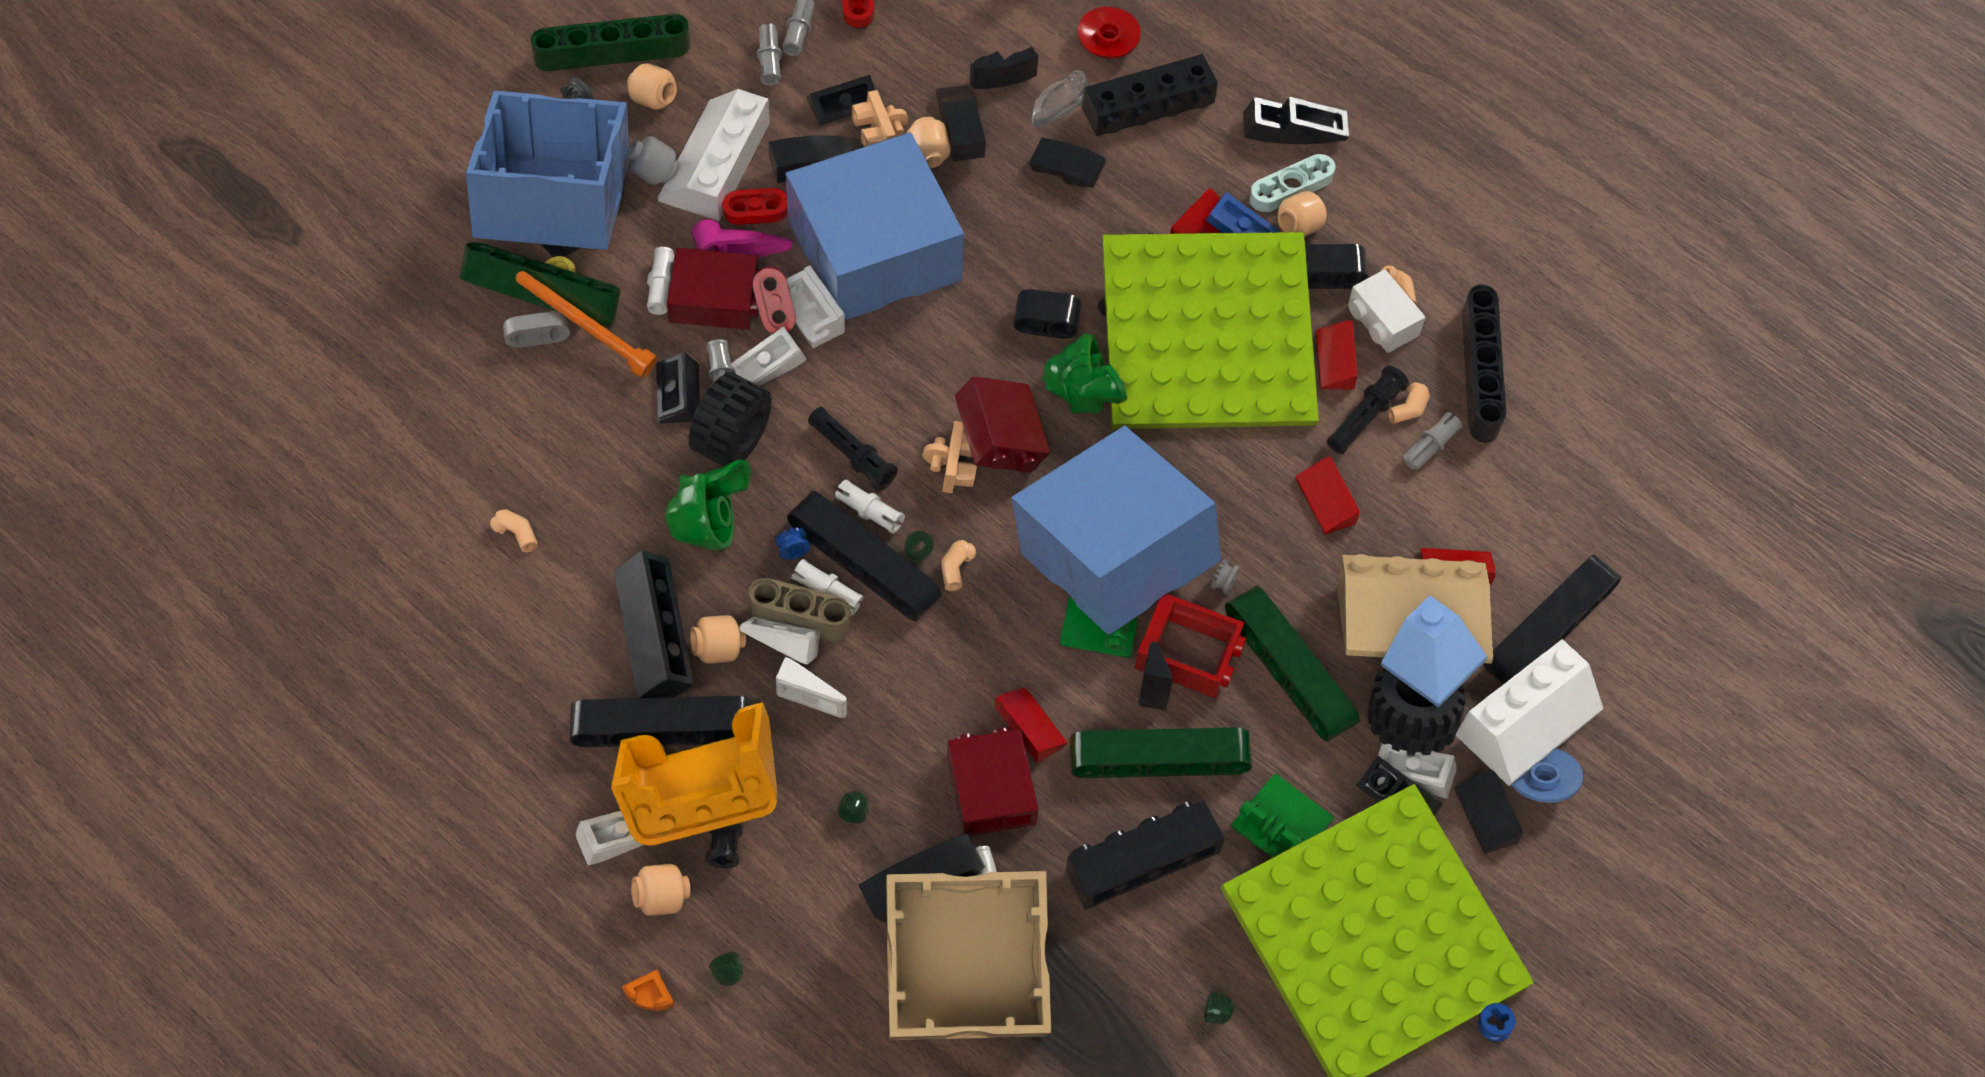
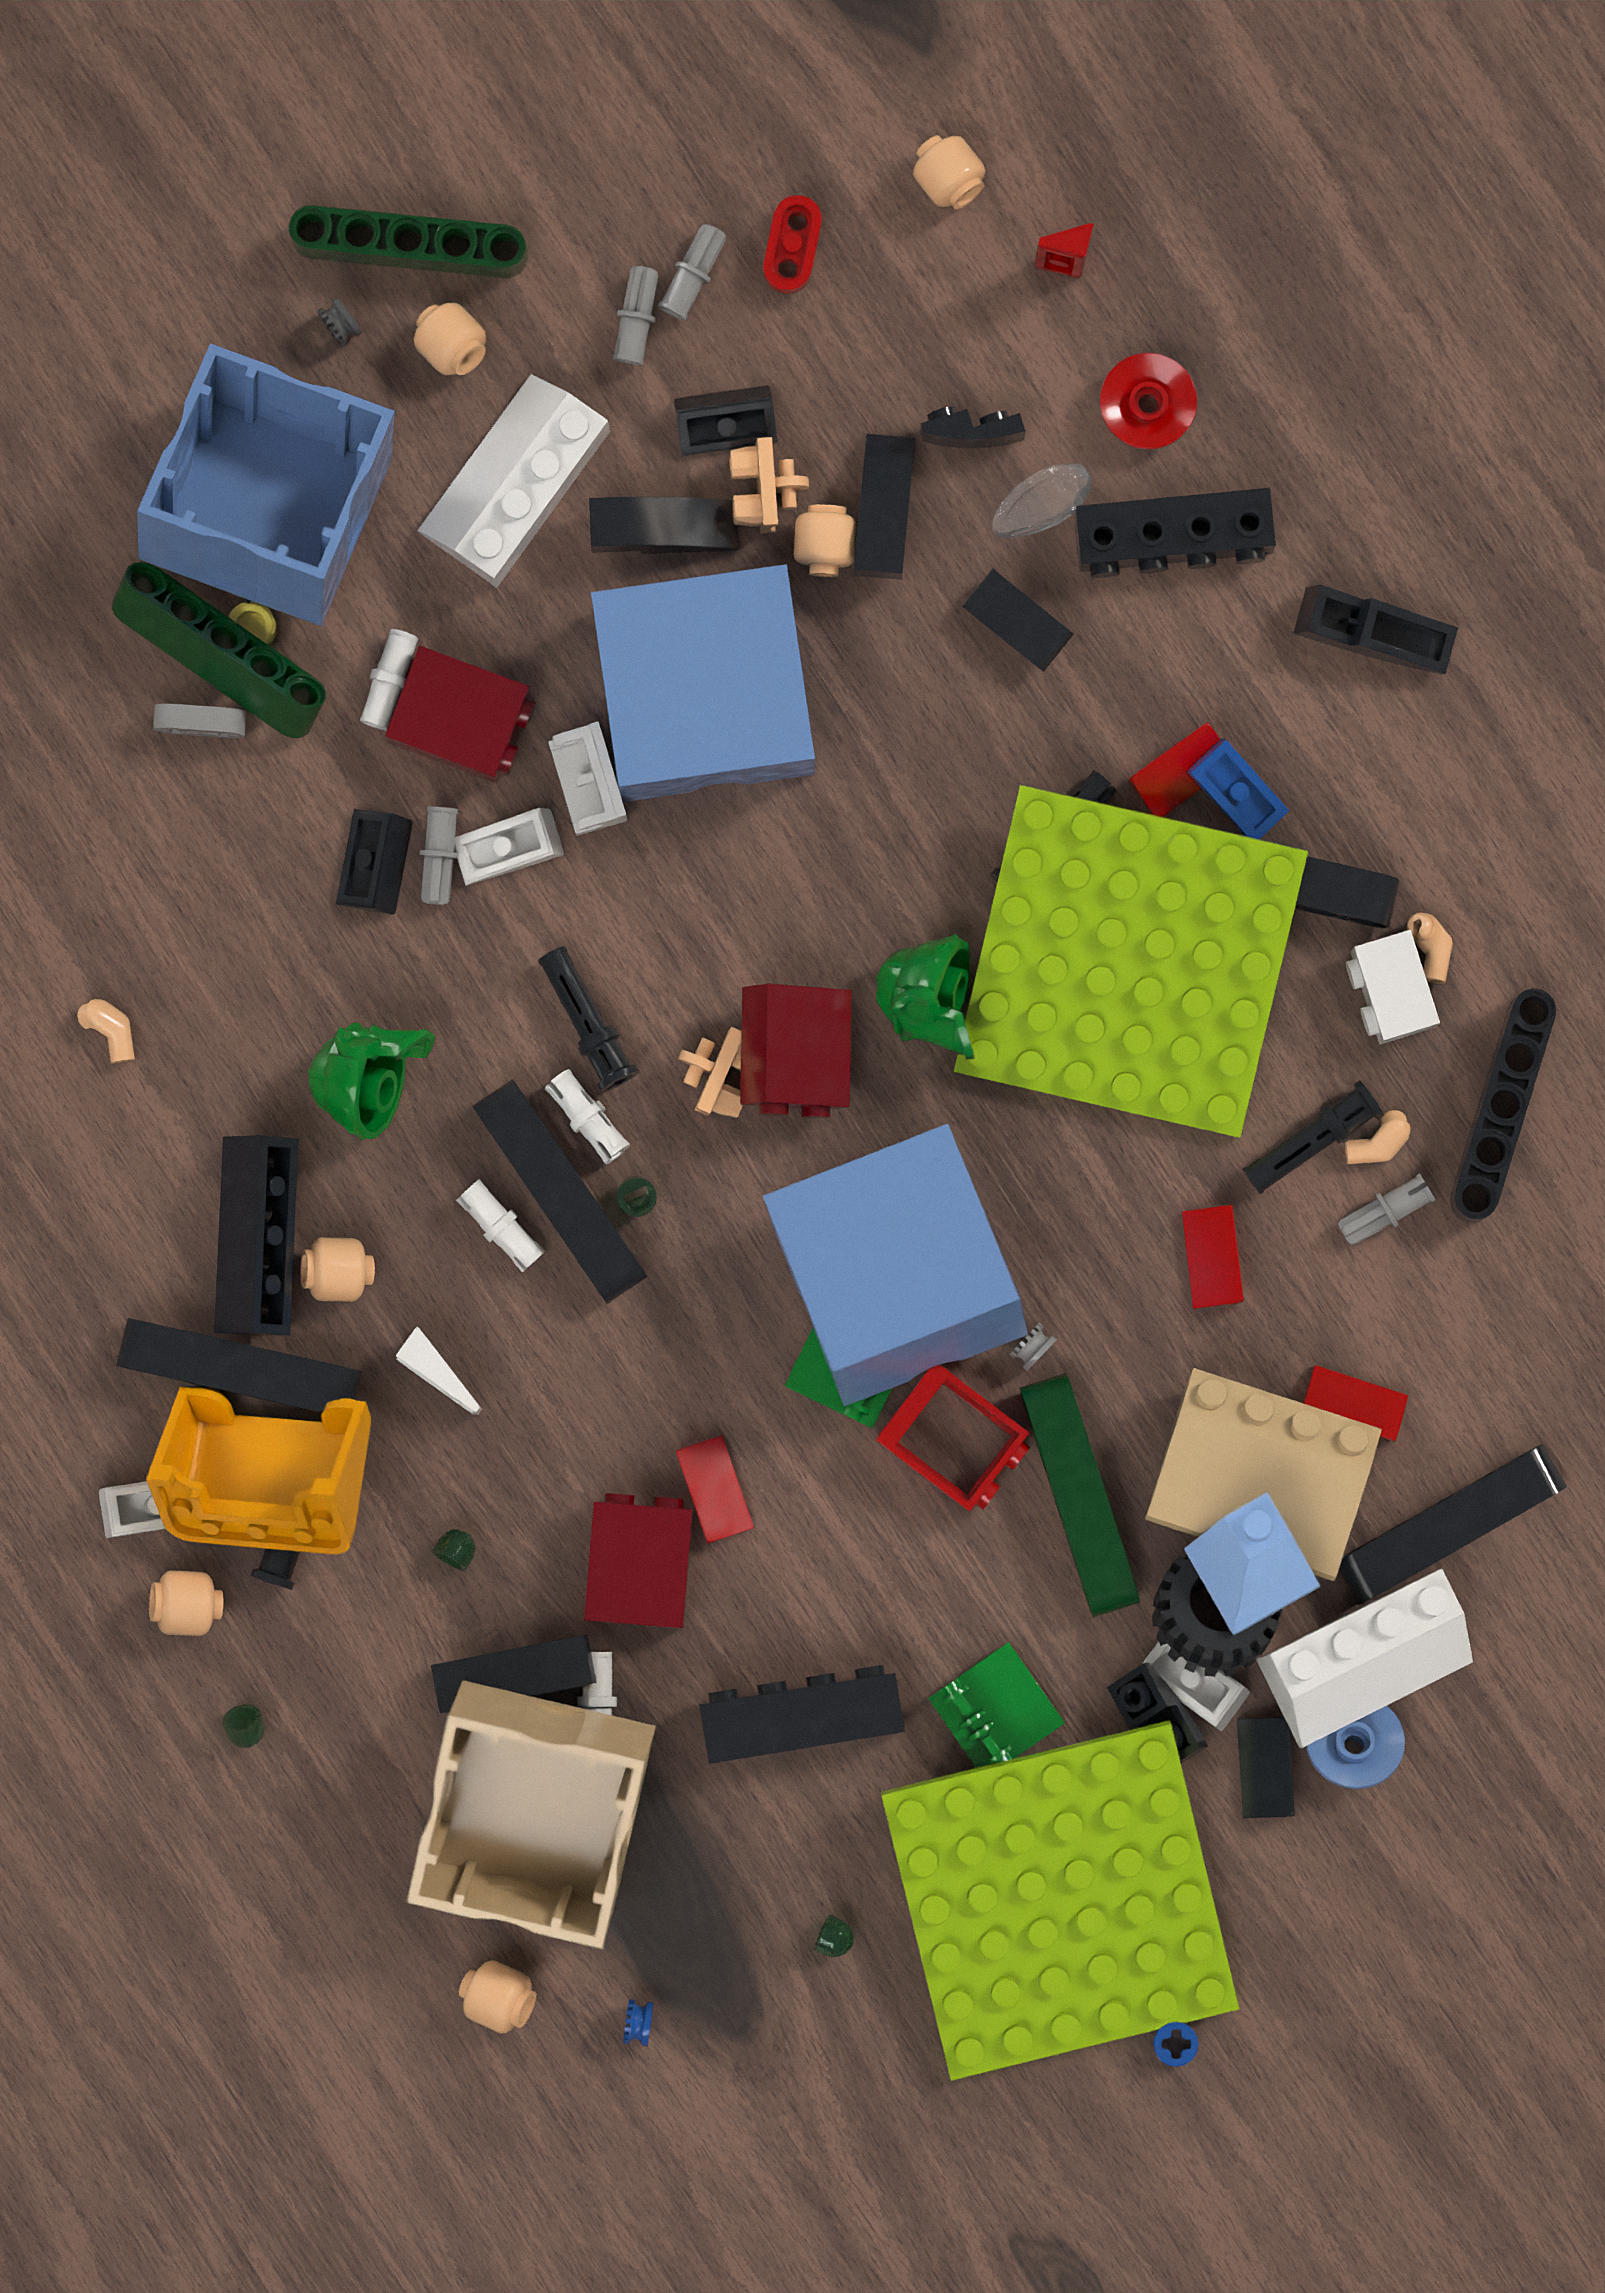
camera: 20 degrees right, 25 degrees up
(639, 360) = (329, 806): orange piece -> none
(649, 992) = (144, 1728): orange tile -> none
(652, 160) = (420, 477): light grey head -> none
(709, 236) = (507, 639): dark pink piece -> none
(730, 419) = (426, 954): black tyre -> none
(755, 206) = (552, 584): red plate -> none
(774, 299) = (536, 759): plate -> none
(789, 596) = (430, 1249): dark tan beam -> none
(792, 544) = (470, 1149): blue bush -> none
(792, 640) = (422, 1288): white slope -> none
(957, 554) = (677, 1226): light nougat arm -> none
(1047, 314) = (914, 871): black beam -> none
(1156, 680) = (884, 1483): black slope -> none
(1160, 752) = (868, 1578): dark green beam -> none
(1299, 171) = (1369, 710): light aqua beam -> none
(1302, 213) = (1328, 796): light nougat head -> none
(1337, 356) = (1301, 1038): red slope -> none

